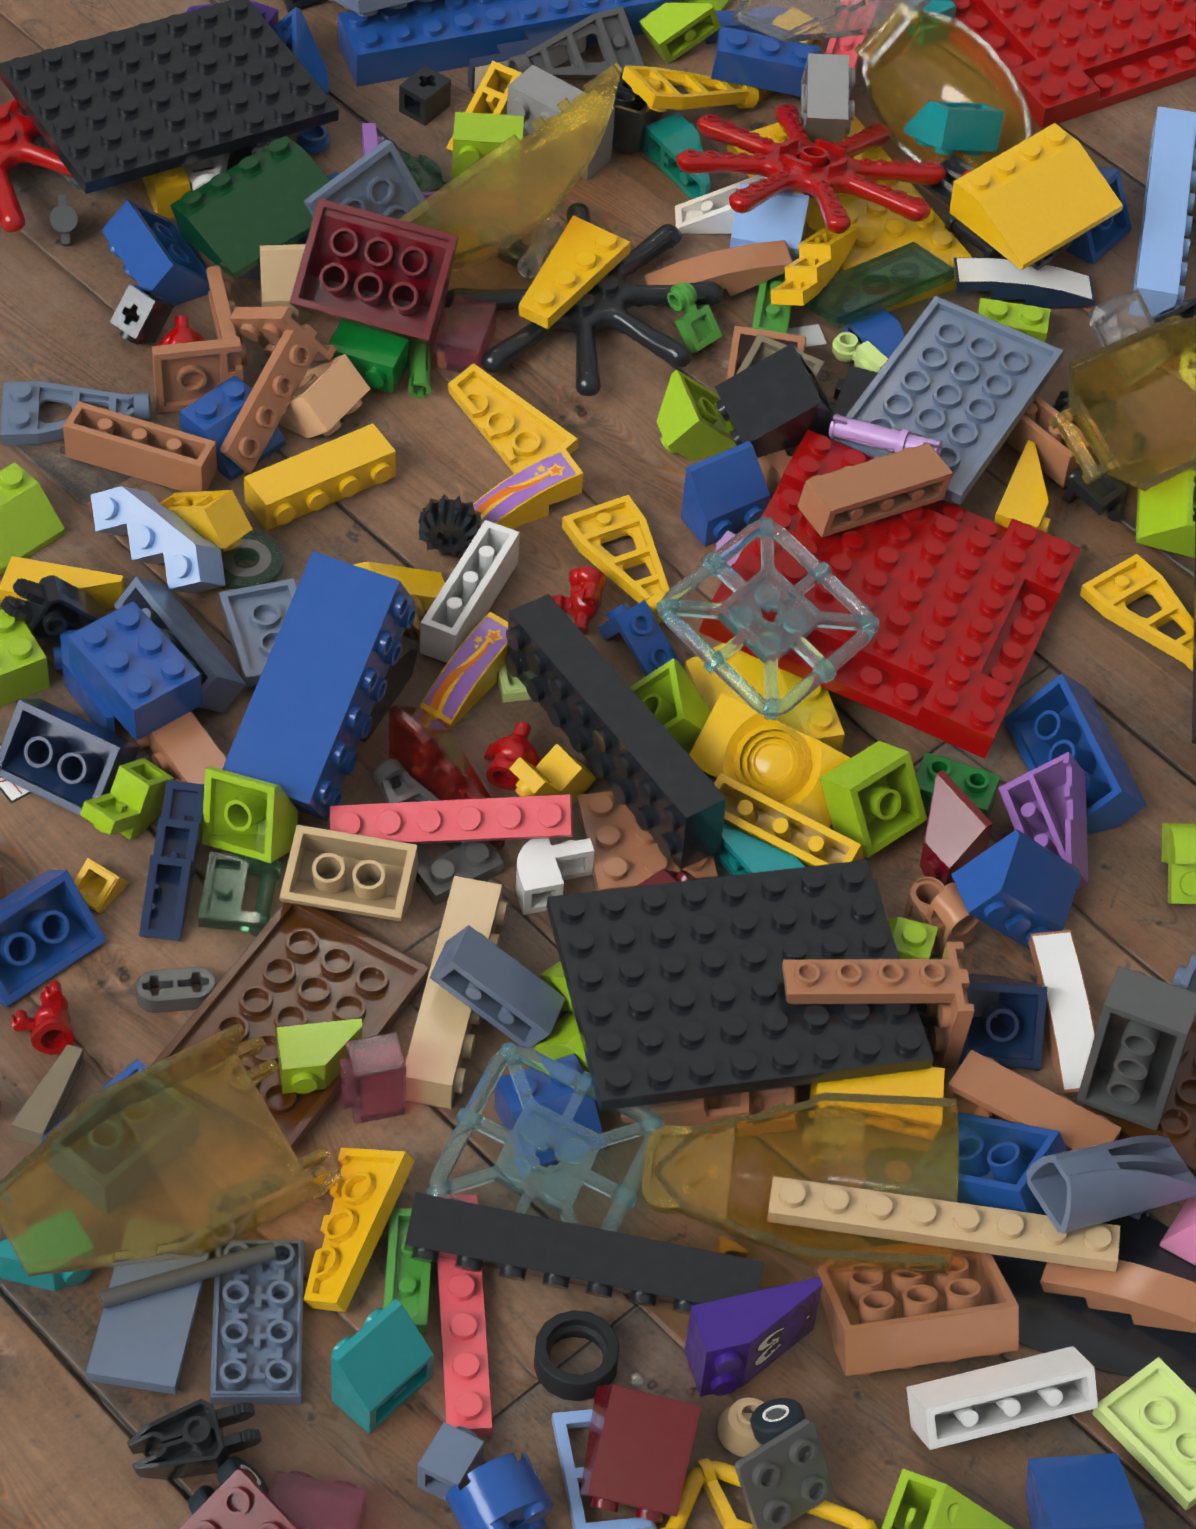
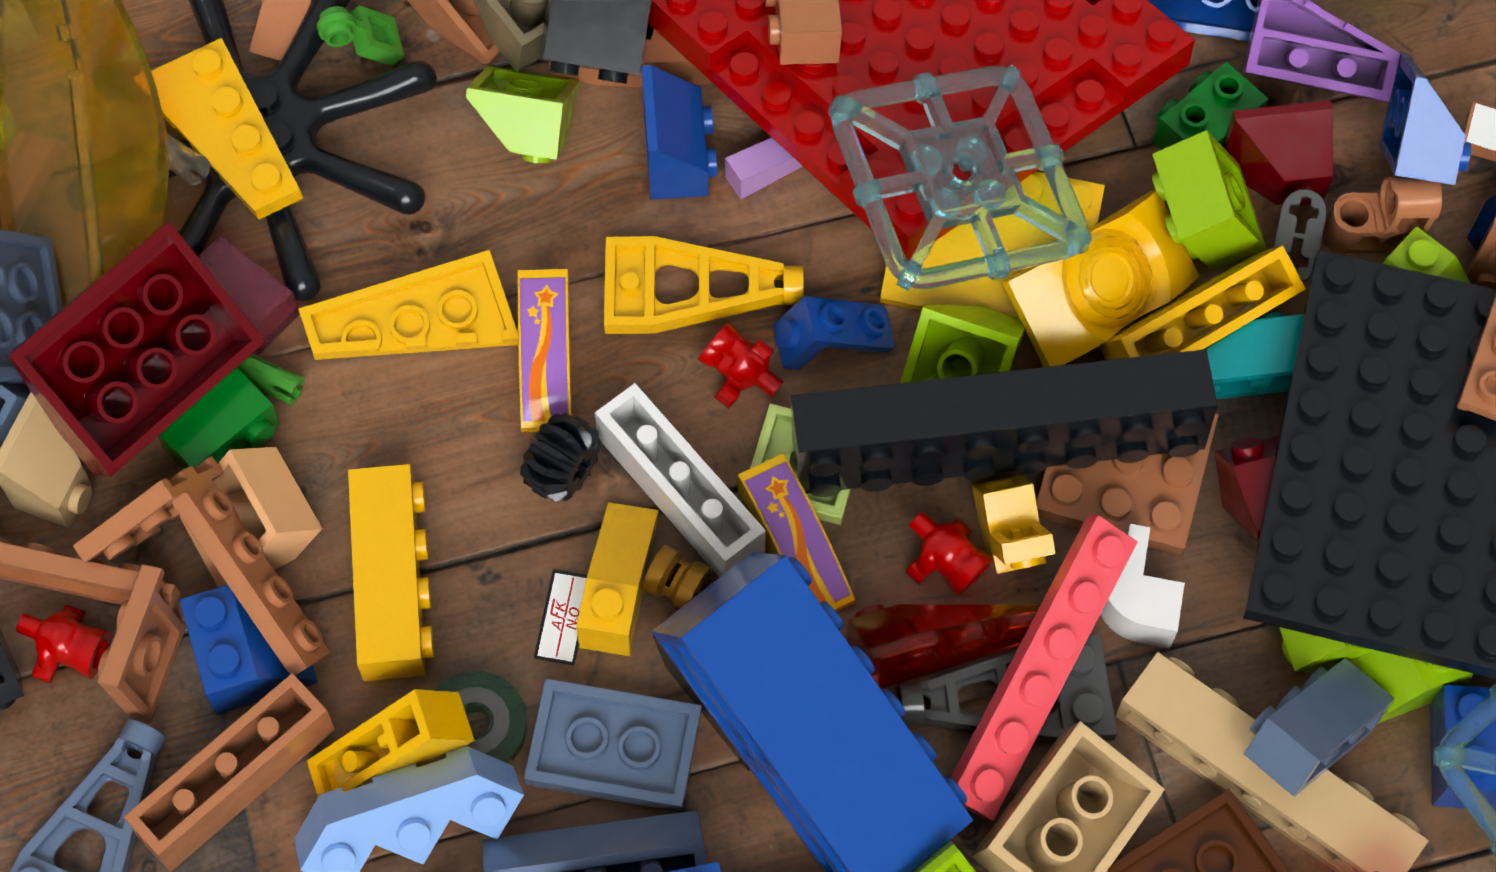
camera: 60 degrees left, 15 degrees up
(891, 869) = (1313, 232): none -> dark grey beam

